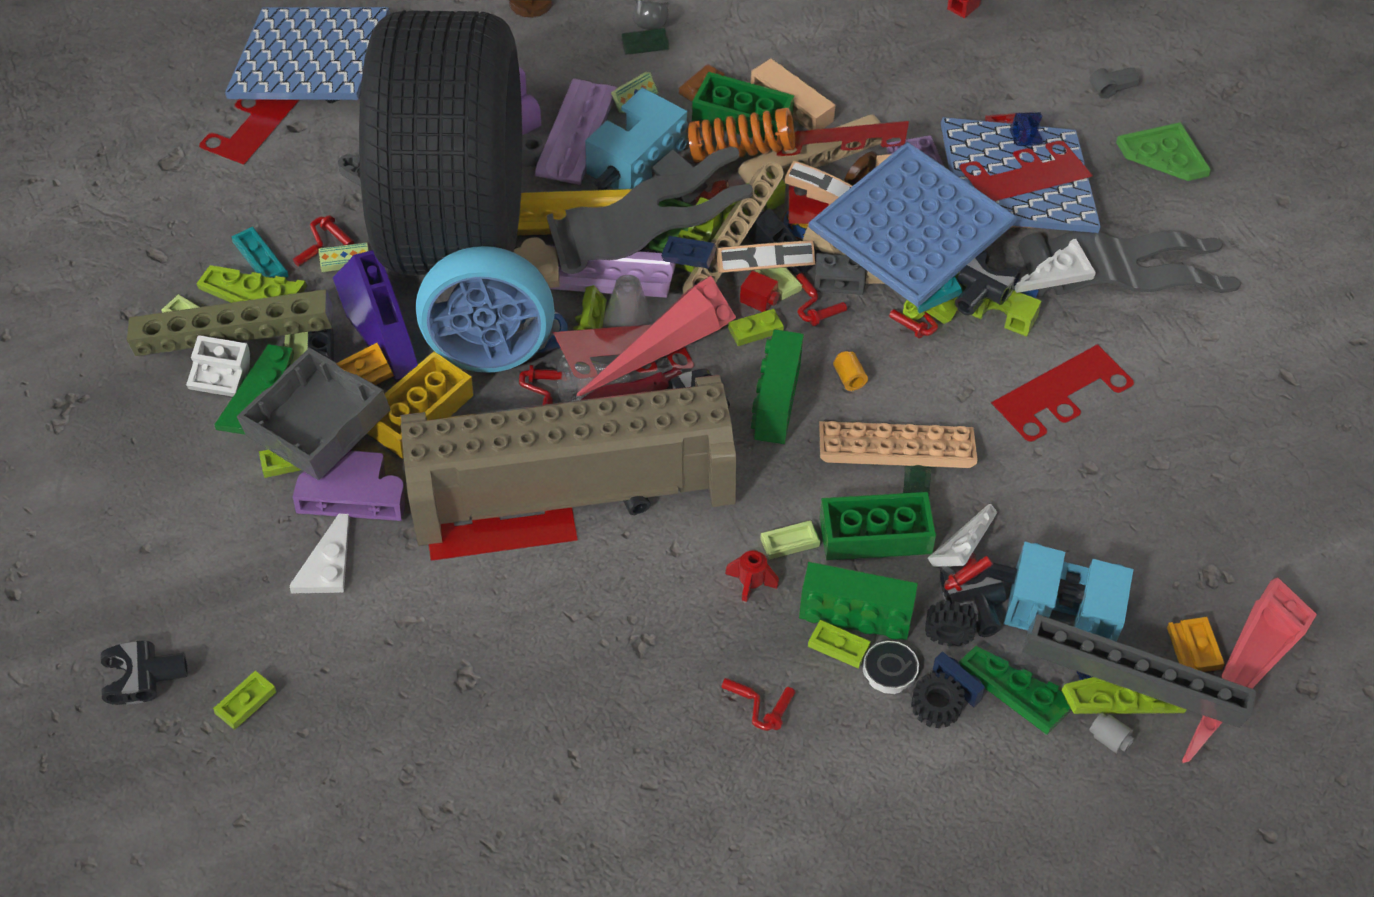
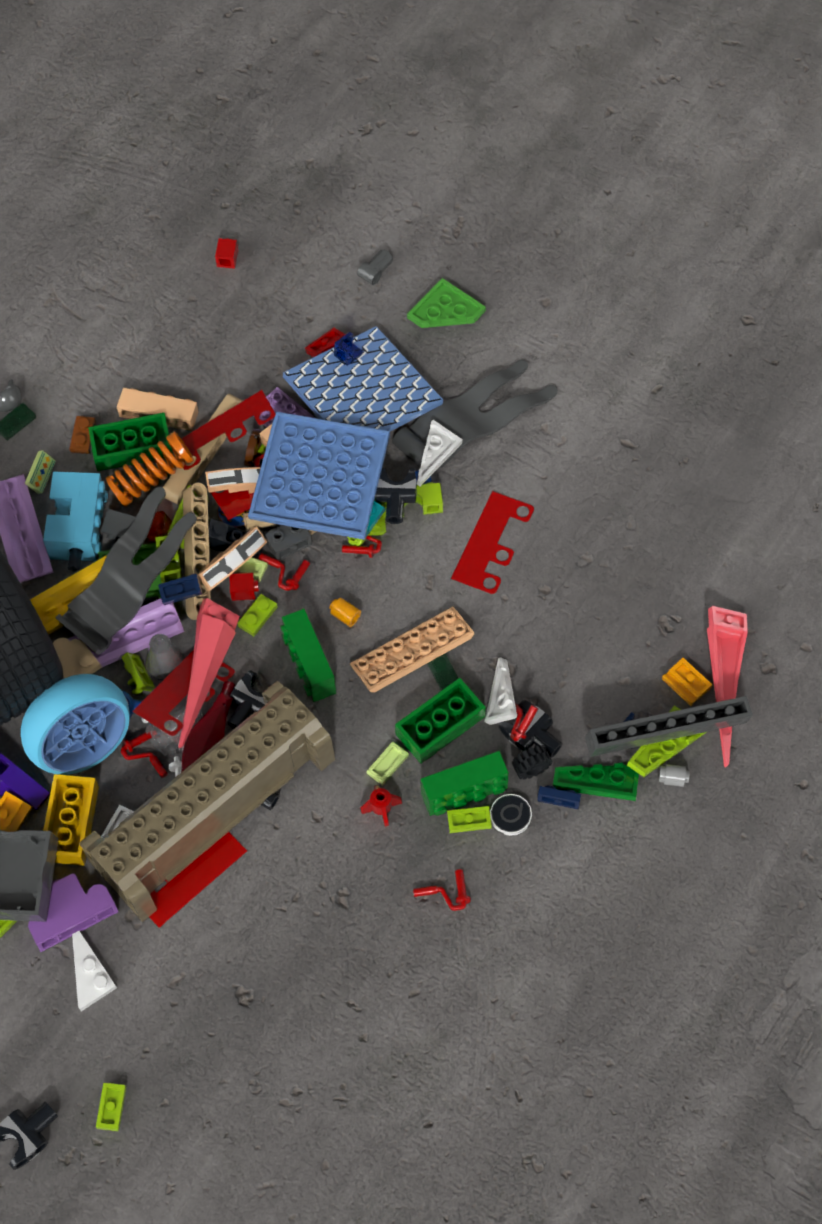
camera: 30 degrees left, 10 degrees up
(941, 686) = (551, 831): black tyre -> none
(1033, 175) = (374, 386): red piece -> none
(1047, 583) = (573, 696): medium azure piece -> none

